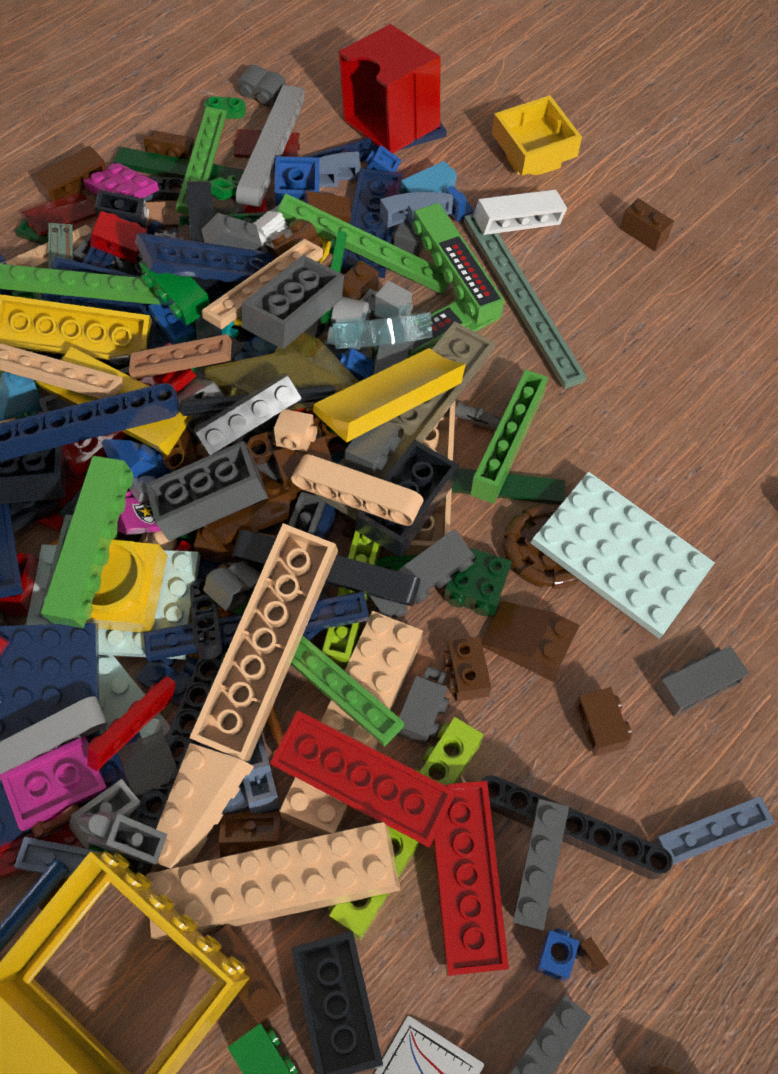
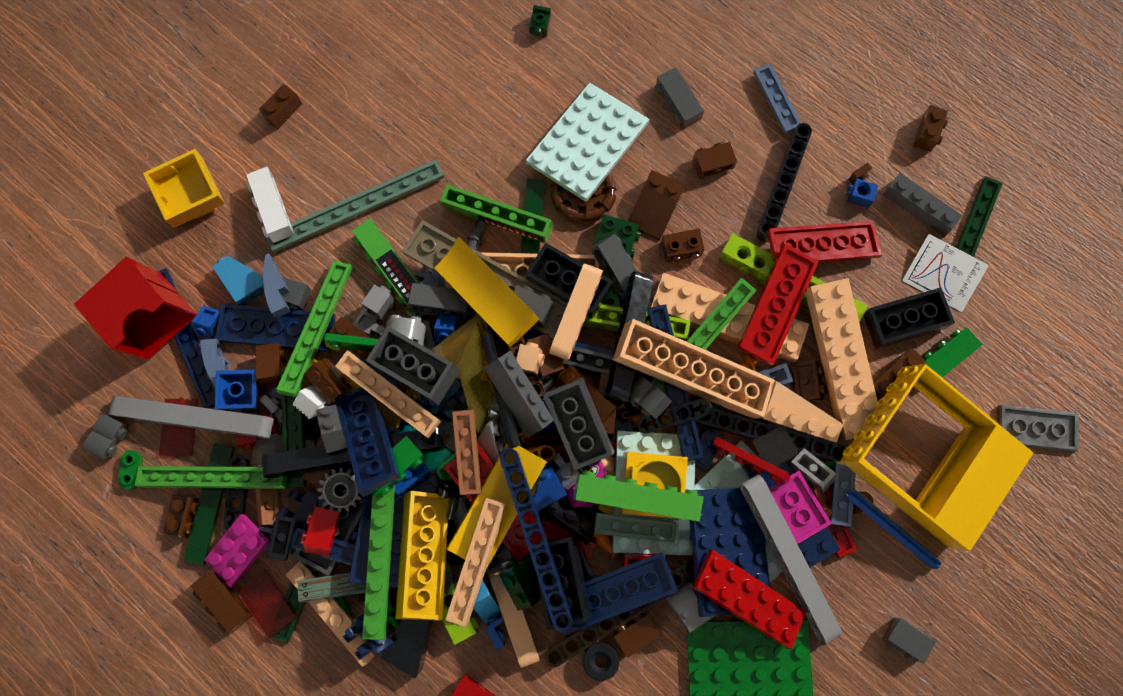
camera: 90 degrees left, 15 degrees up
(123, 836) = (834, 449): dark grey brick -> none
(224, 188) = (252, 450): green plate -> none
(382, 331) = (424, 301): clear light blue slope -> none
(423, 707) = (712, 274): dark grey brick -> none
(457, 263) = (333, 252): bright green brick -> none
(460, 205) = (257, 256): blue bracket -> none
(540, 864) = (814, 198): dark grey brick -> none

